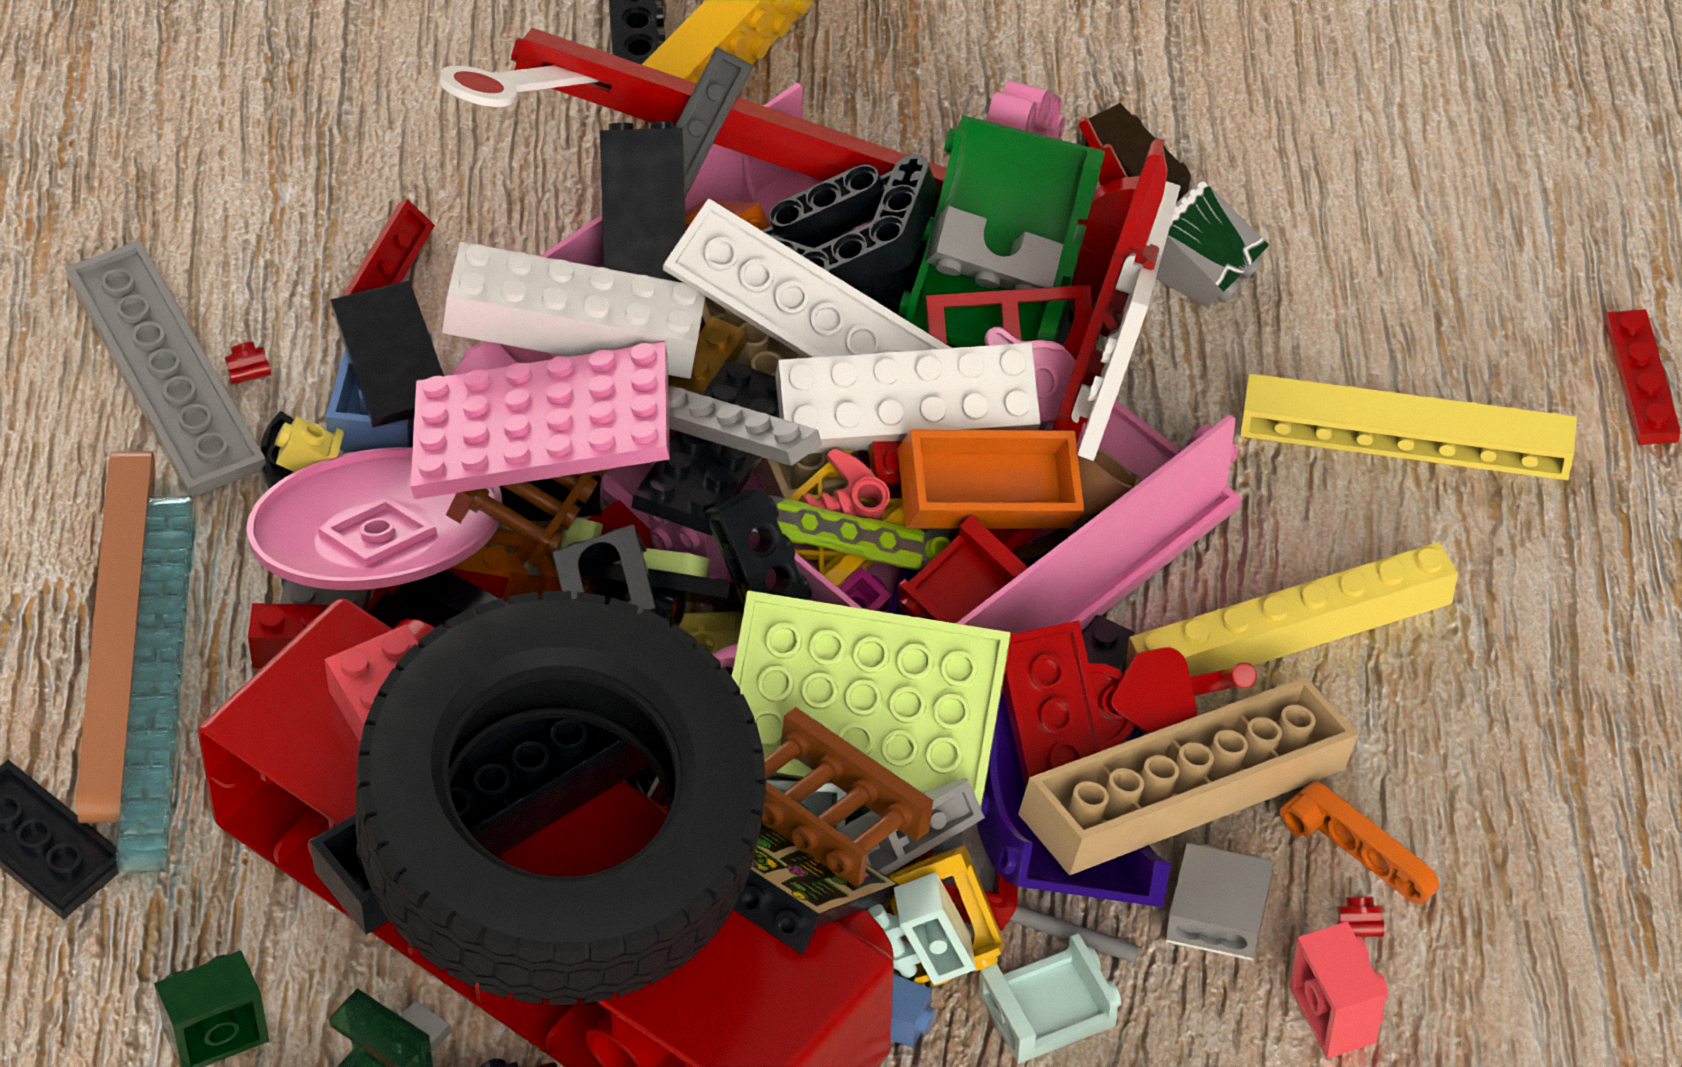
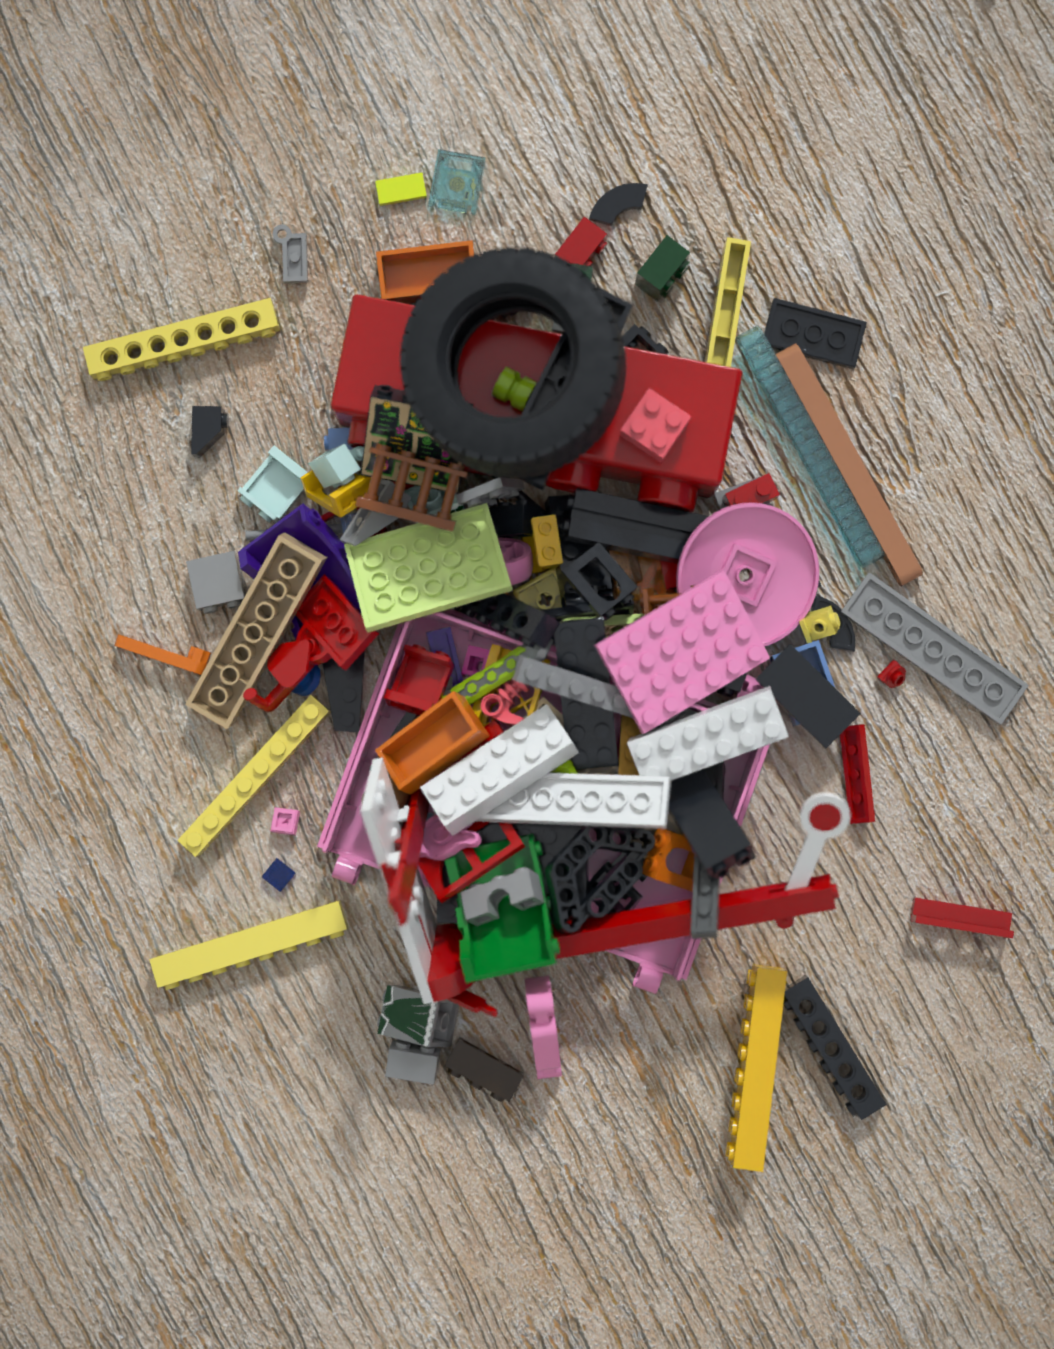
camera: 155 degrees right, 35 degrees up
(153, 907) = (727, 301): none -> light yellow brick
(328, 952) = (643, 336): none -> black bracket
(357, 67) = (961, 917): none -> red fence
(585, 836) = (513, 388): none -> lime wheel
(1243, 193) = (412, 1062): none -> light grey brick
(1274, 552) = (285, 821): none -> bright pink tile
(1319, 497) = (278, 874): none -> clear blue tile
(1338, 989) = (131, 546): coral brick -> none
(1362, 916) = (147, 610): red plate -> none
(1642, 377) = (139, 1051): red plate -> none

